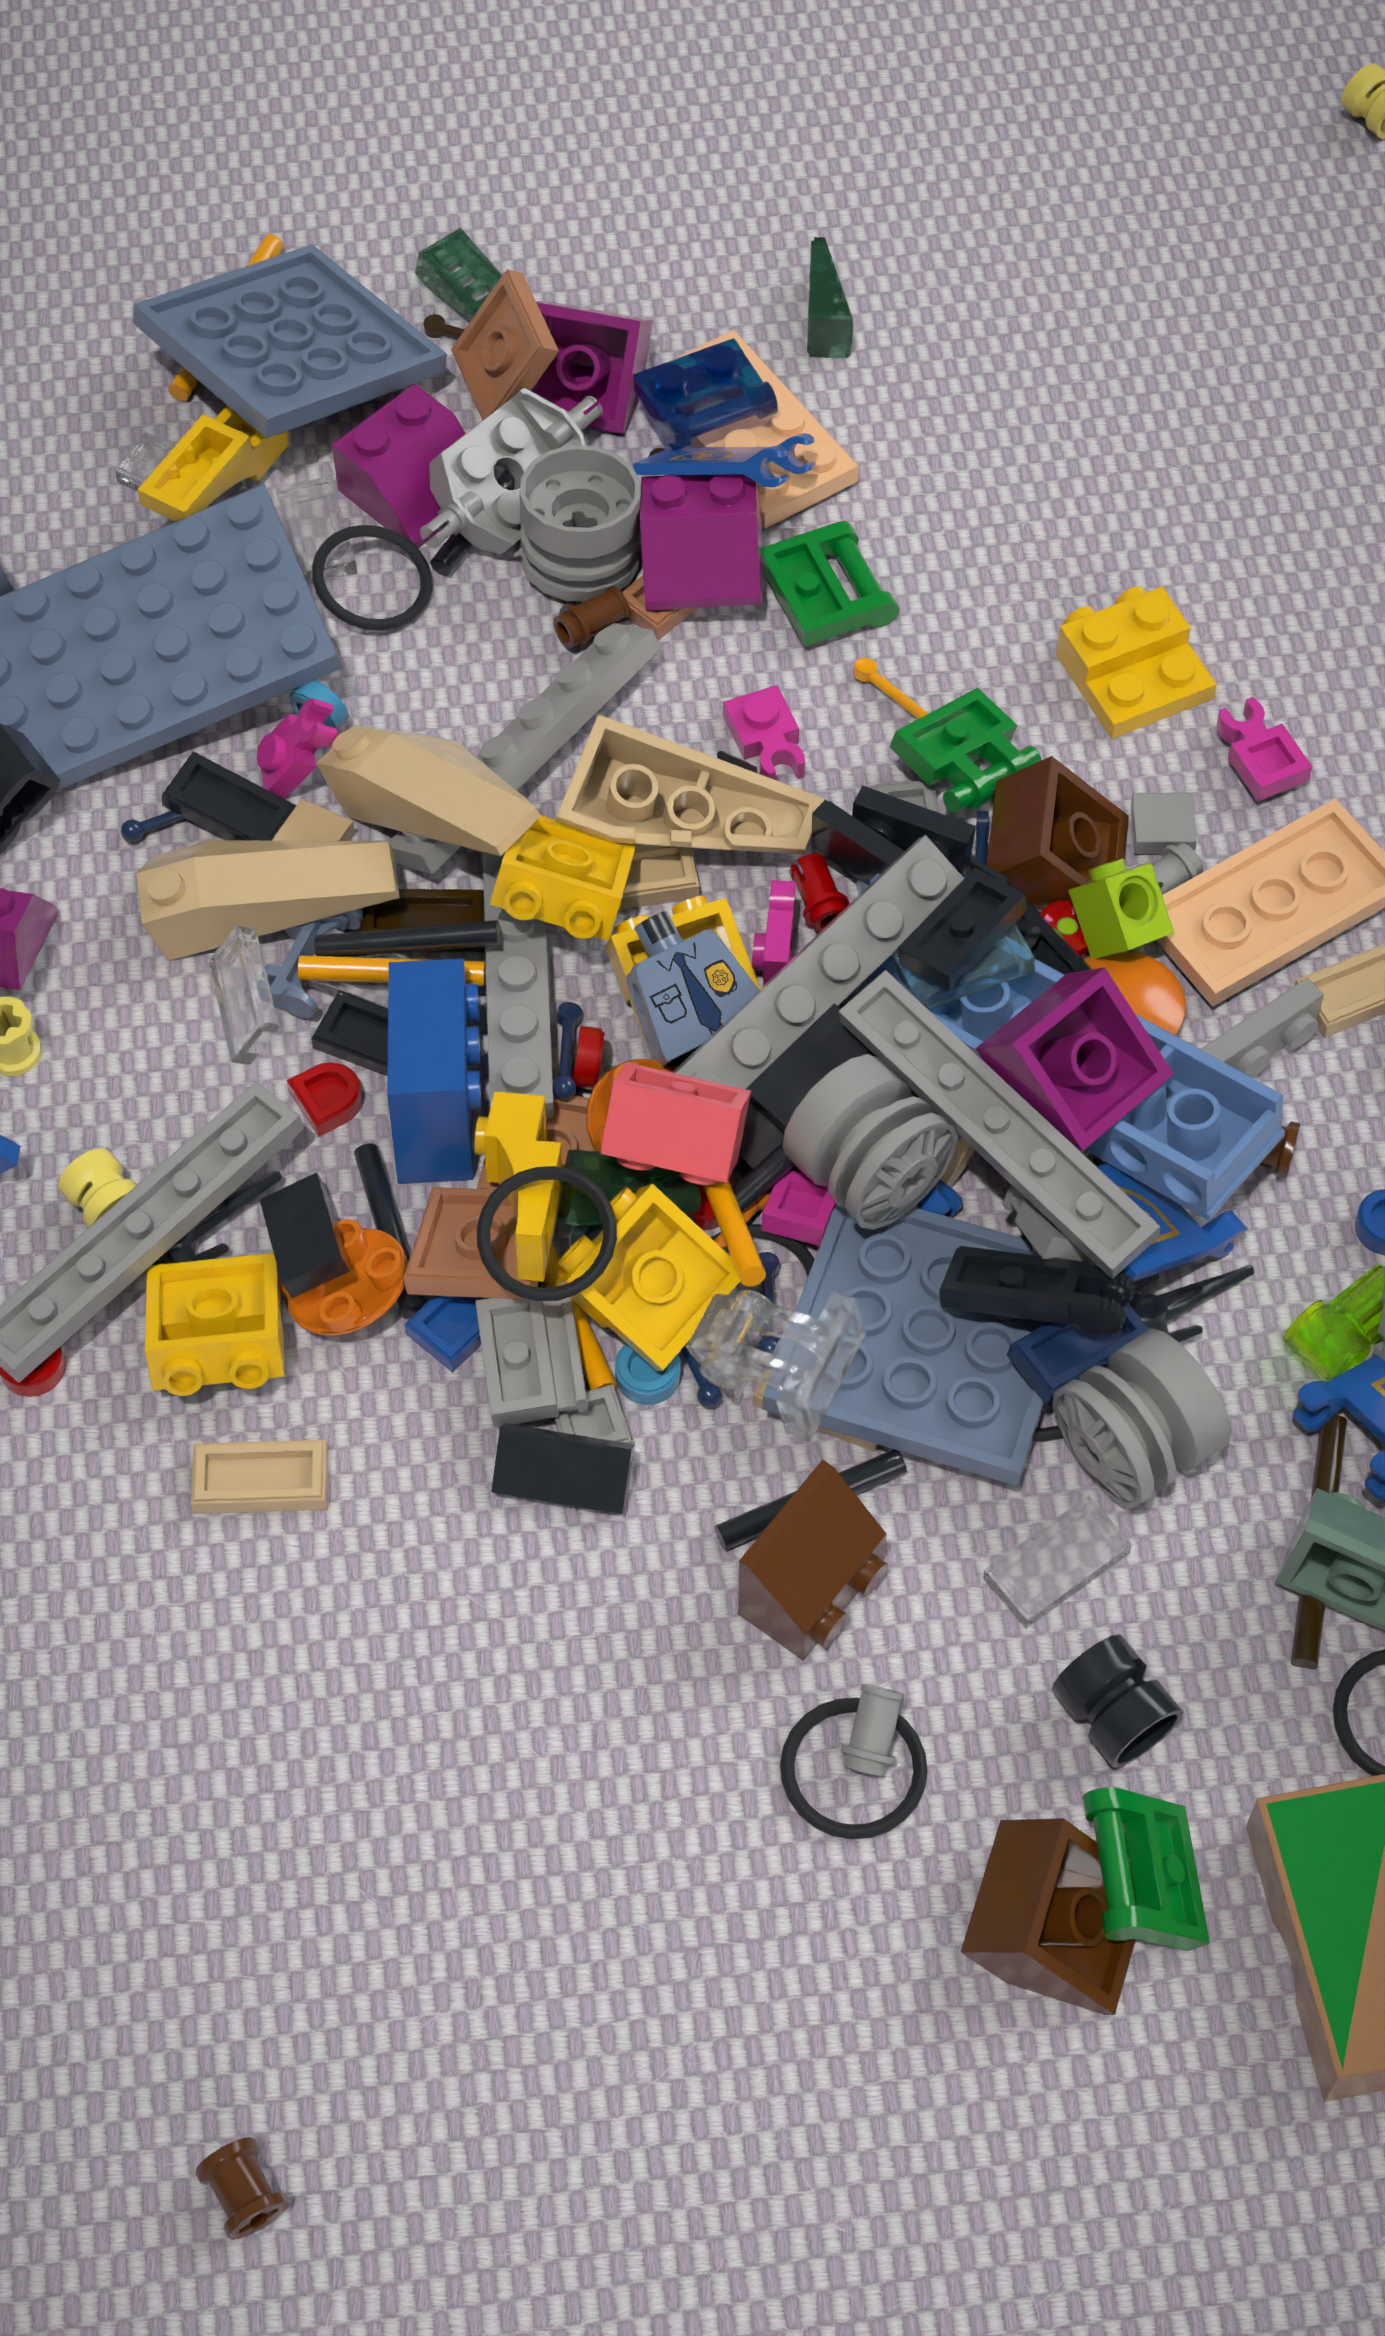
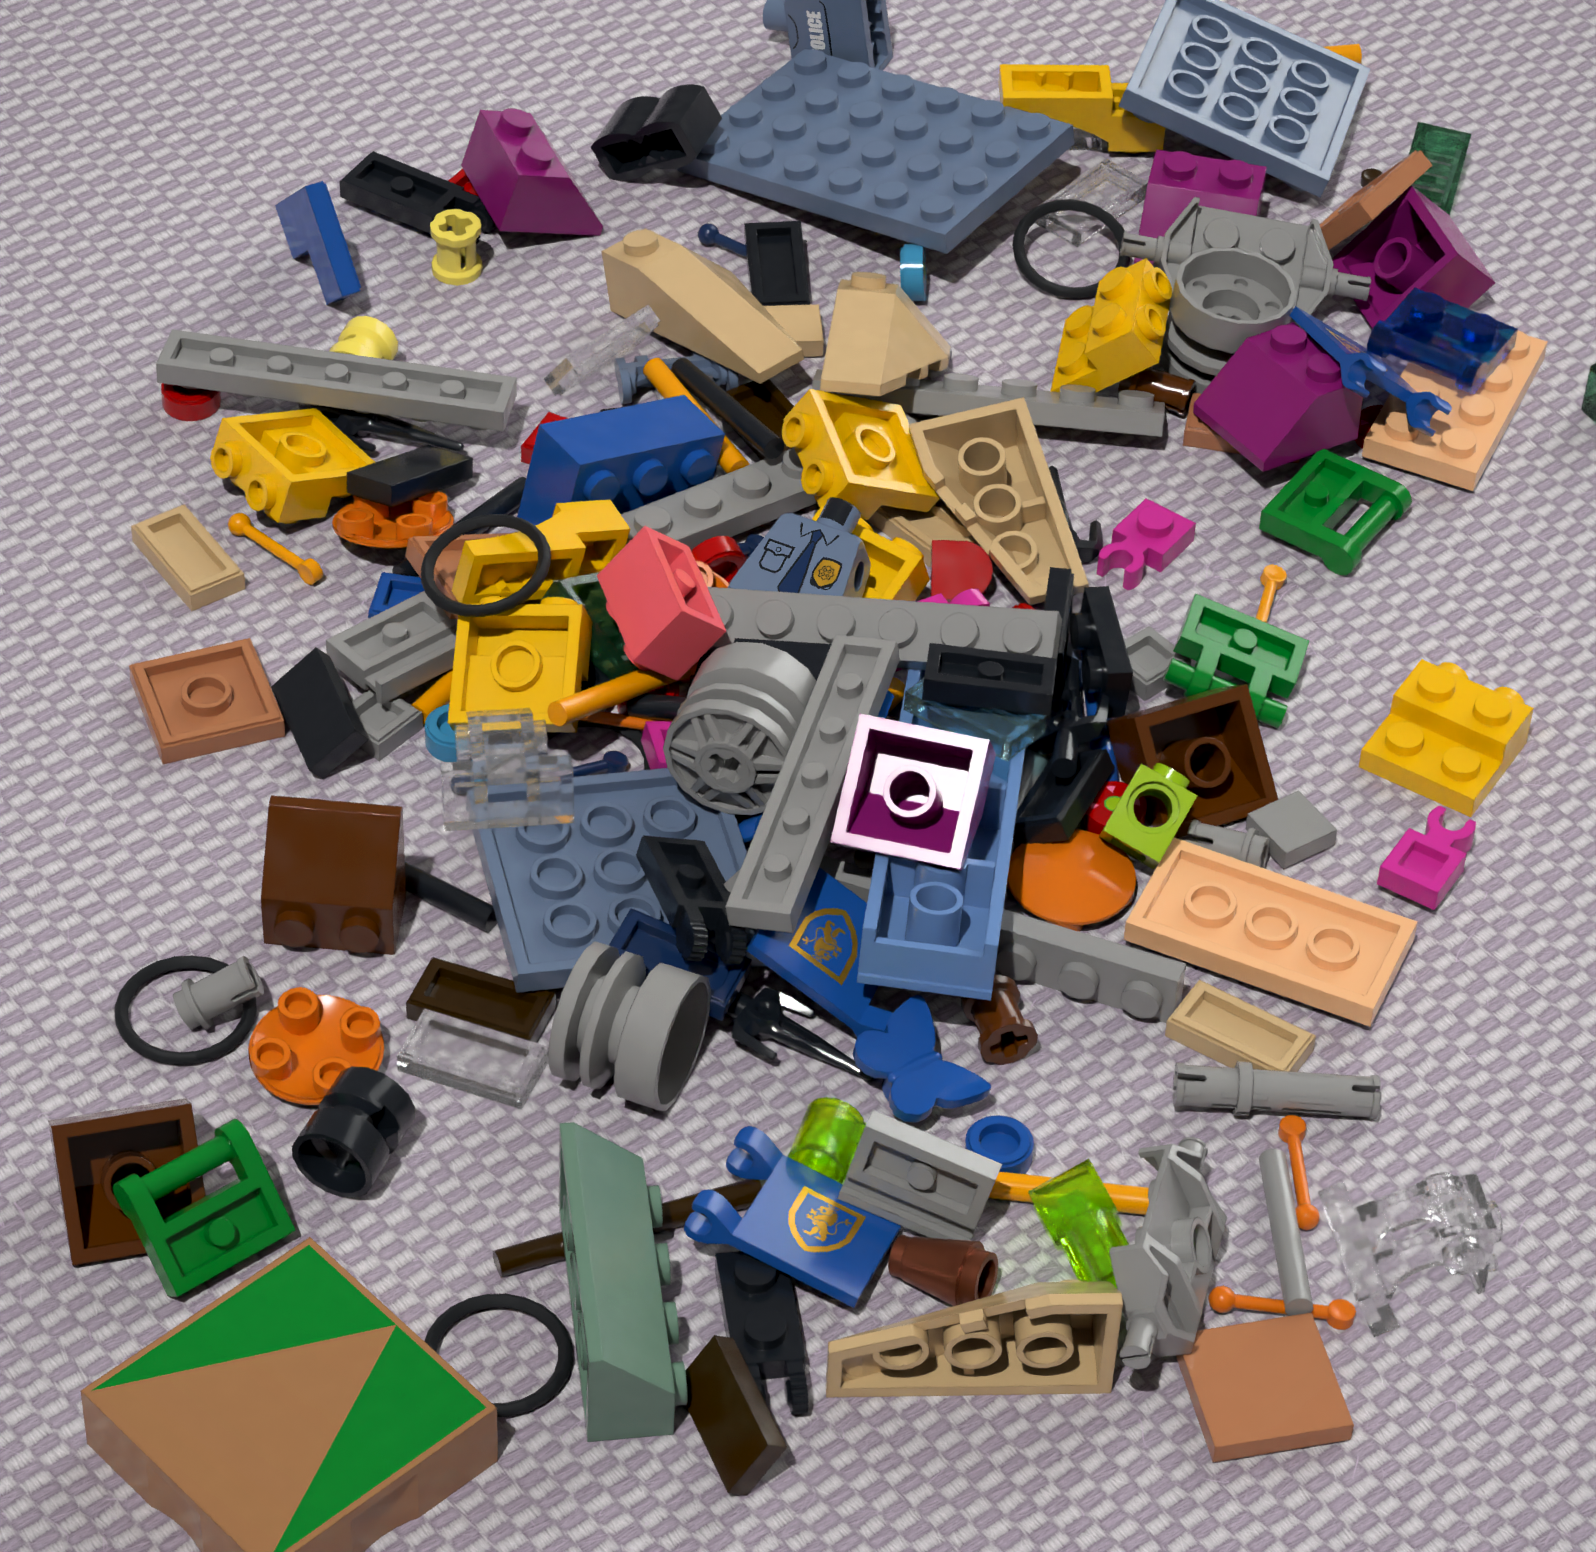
camera: 55 degrees right, 15 degrees down
(289, 750) = (845, 263): dark pink plate -> none
(351, 1383) = (309, 570): none -> light orange hinge
(466, 1555) = (206, 701): none -> nougat tile
(530, 608) = (1117, 333): none -> yellow plate
(722, 876) = (958, 567): none -> red tile
(979, 1682) = (310, 1041): none -> orange dish
(995, 1523) = (481, 1000): none -> dark brown tile
(1289, 1236) = (911, 1069): none -> blue animal

